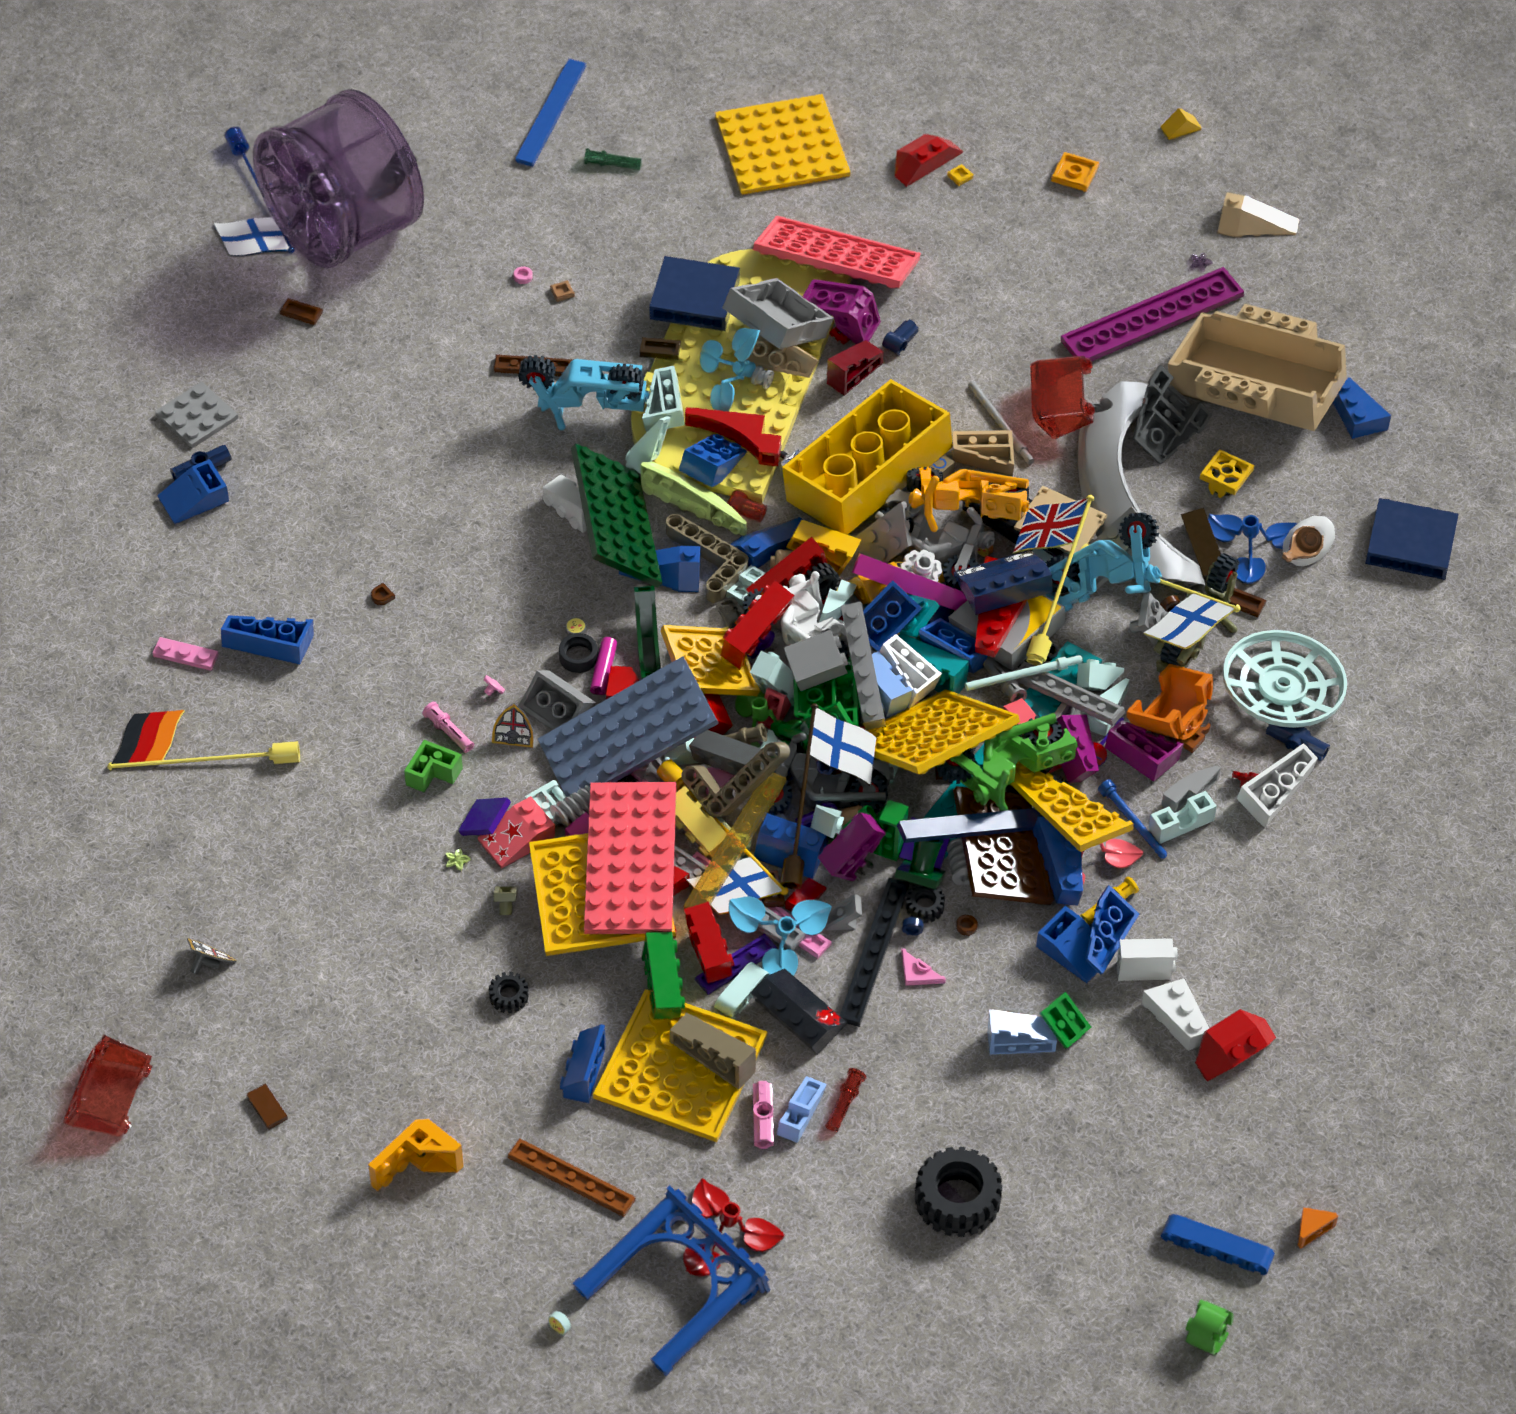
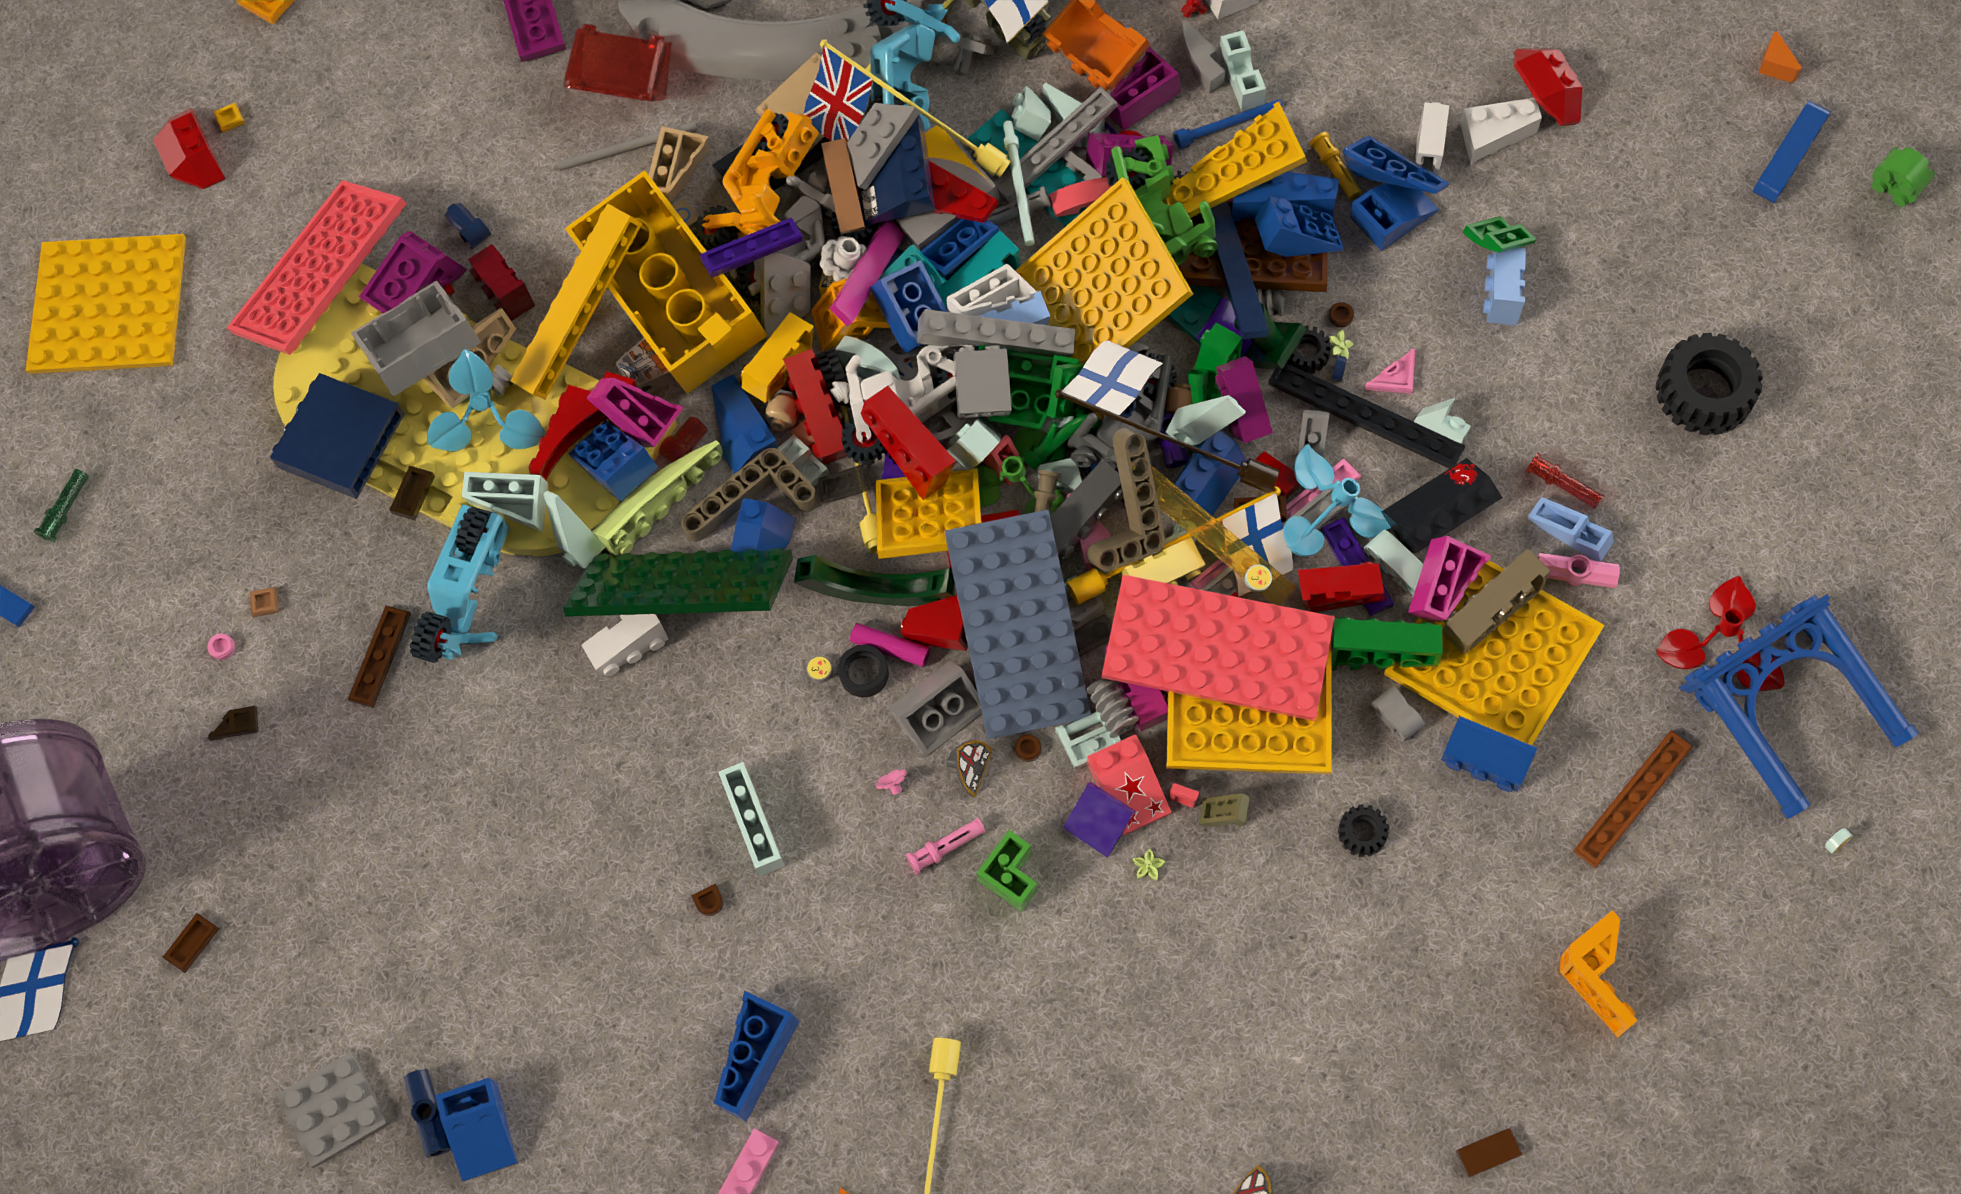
camera: 70 degrees left, 15 degrees up
(445, 603) = (751, 819): none -> light aqua brick
(466, 298) = (236, 723): none -> dark brown tile
(515, 870) = (1184, 795): none -> coral tile
(537, 768) = (1028, 748): none -> reddish brown tile
(610, 1003) = (1397, 714): none -> light grey axle
(700, 882) = (1258, 578): none -> light yellow tile
(728, 1009) = (1444, 578): none -> dark pink wedge
(749, 456) = (634, 411): none -> dark pink wedge
(819, 483) = (715, 330): none -> yellow tile
(829, 398) = (576, 301): none -> yellow brick
(878, 1006) = (1438, 420): none -> light aqua slope
(897, 492) = (751, 247): none -> dark purple tile
(935, 925) = (1339, 346): none -> yellowish green plant
(980, 548) = (843, 186): none -> medium nougat slope
(1019, 556) = (878, 138): none -> light grey wing
(1028, 870) = (1296, 229): none -> blue slope

